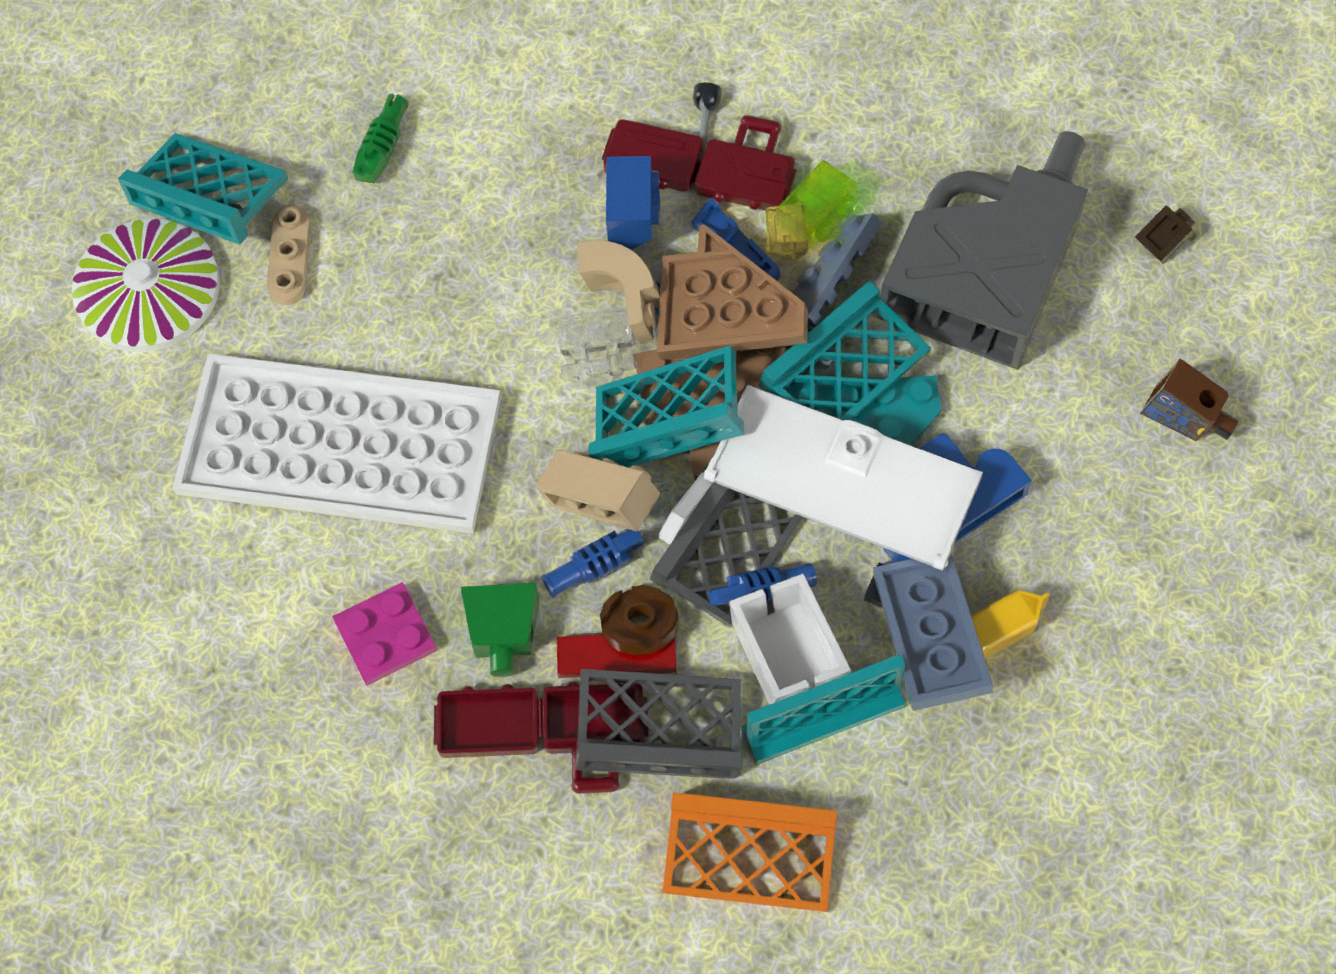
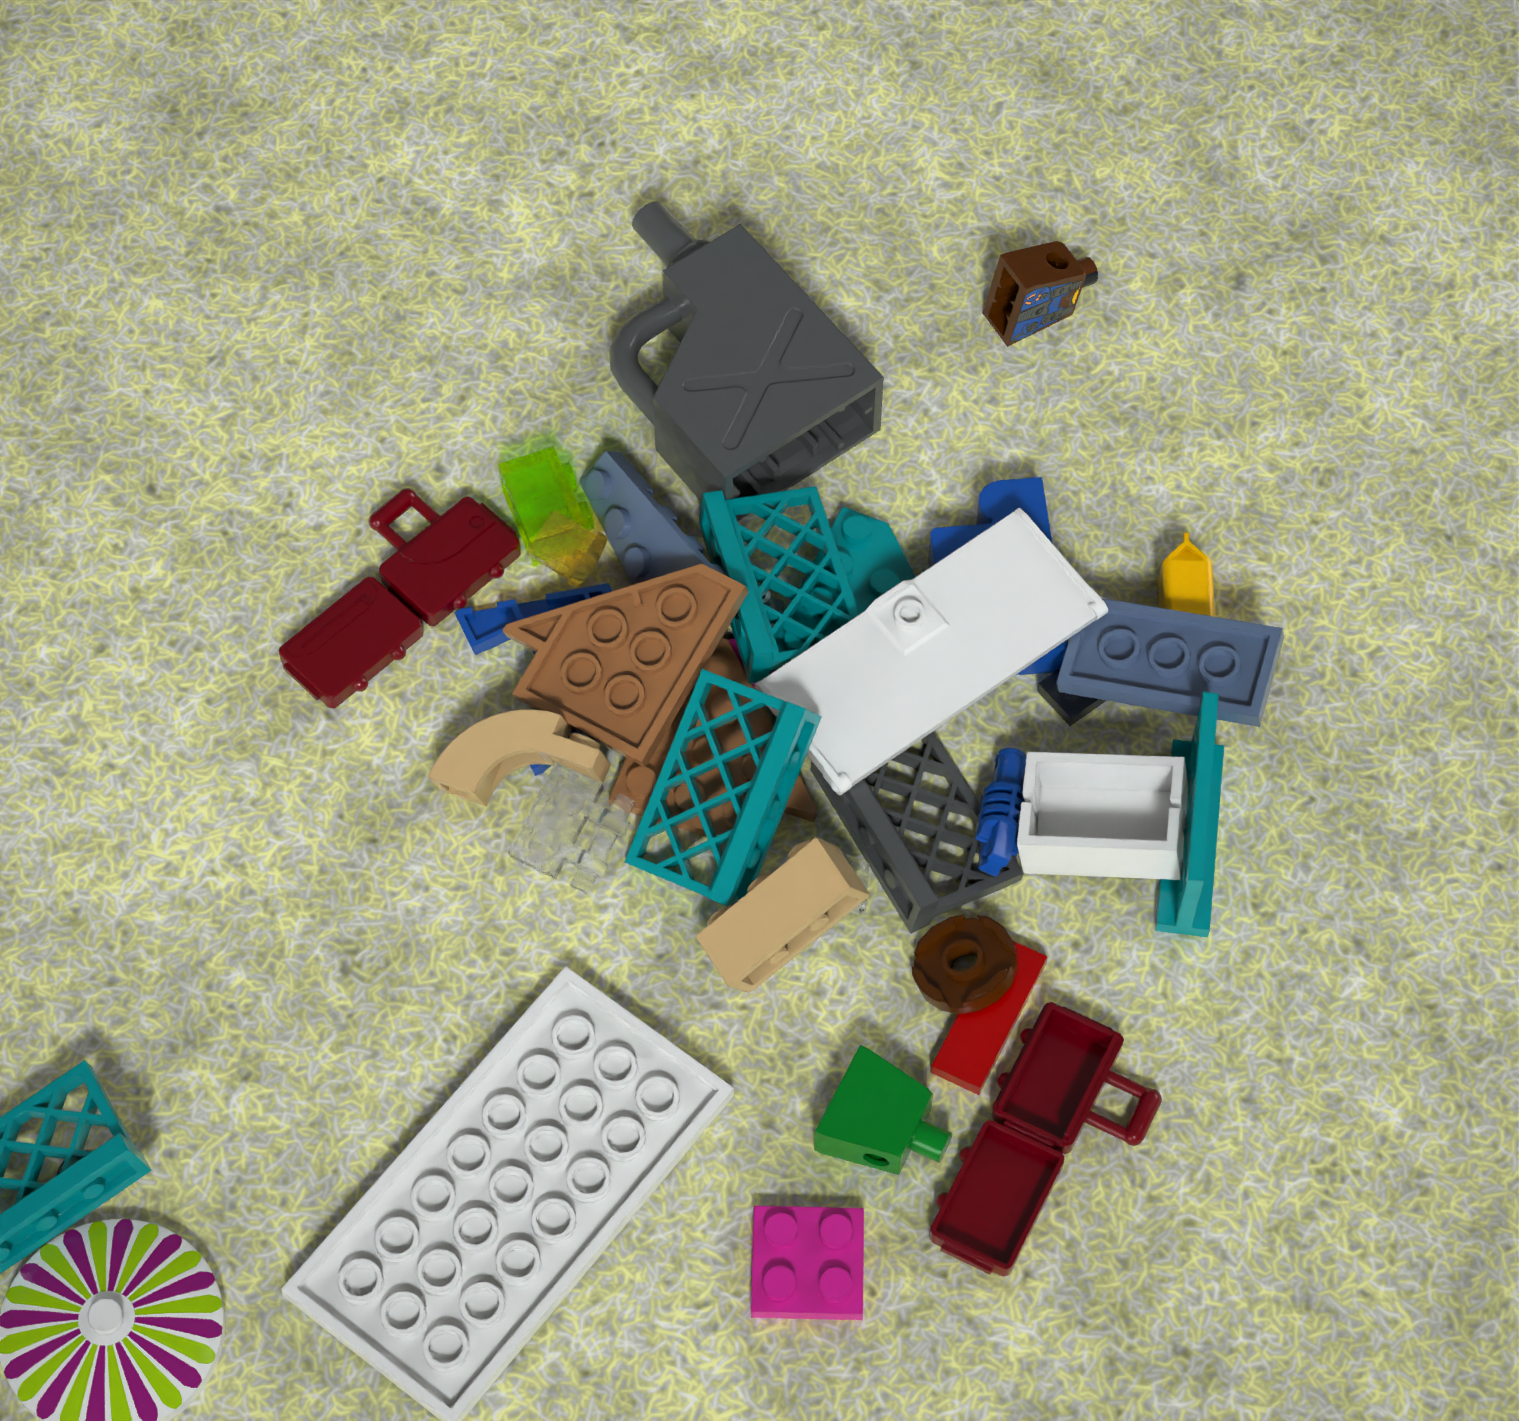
camera: 65 degrees left, 5 degrees down
(293, 265) = (203, 1145): tan plate -> none
(380, 140) = (104, 936): green hinge -> none
(593, 561) = (856, 978): blue hinge -> none
(631, 200) = (417, 689): blue slope -> none
(653, 757) = (1147, 1035): dark grey fence -> none
(684, 509) = (862, 835): white tile -> none
(706, 98) = (316, 548): black hinge -> none
(755, 816) = (1274, 967): orange fence -> none
(1166, 233) = (814, 199): dark brown bracket -> none

